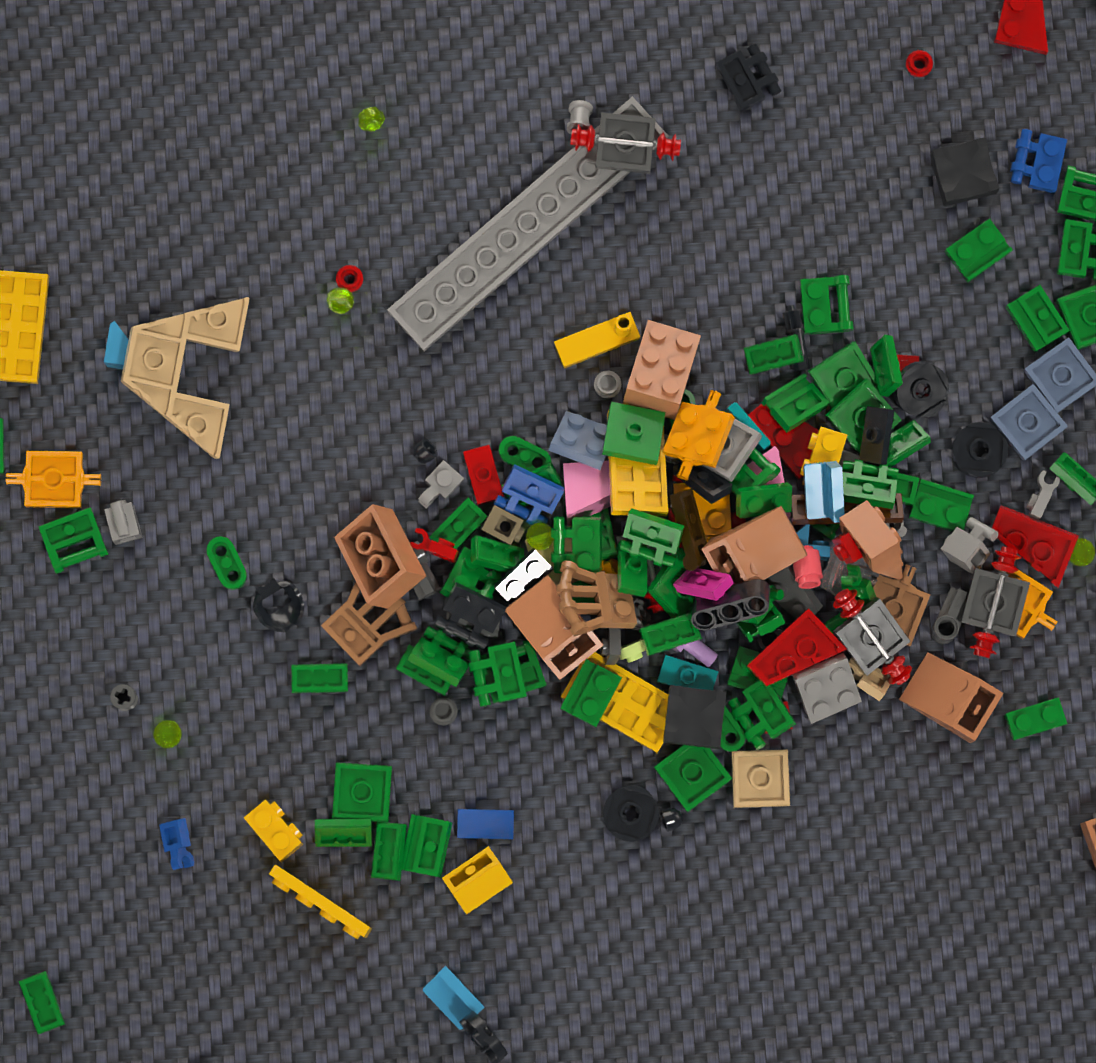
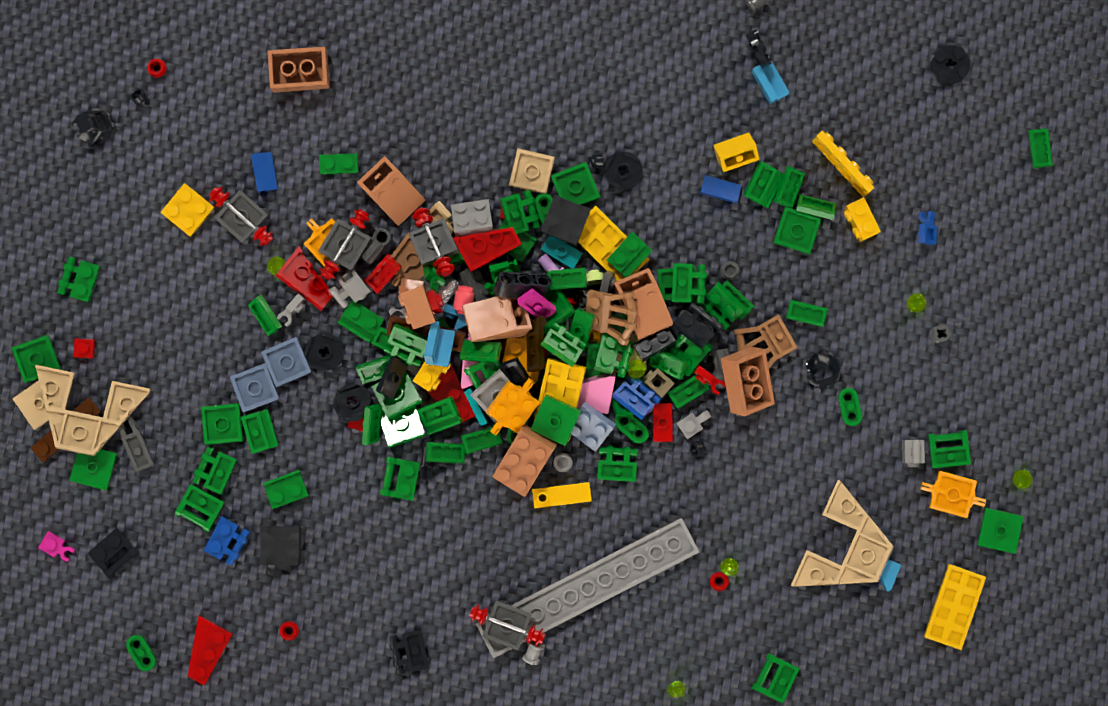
camera: 160 degrees left, 5 degrees up
(230, 167) = (781, 680): none -> green plate
(531, 392) = (614, 469): none -> green plate
(730, 383) = (480, 440): none -> green plate
(929, 578) = (383, 273): none -> red plate

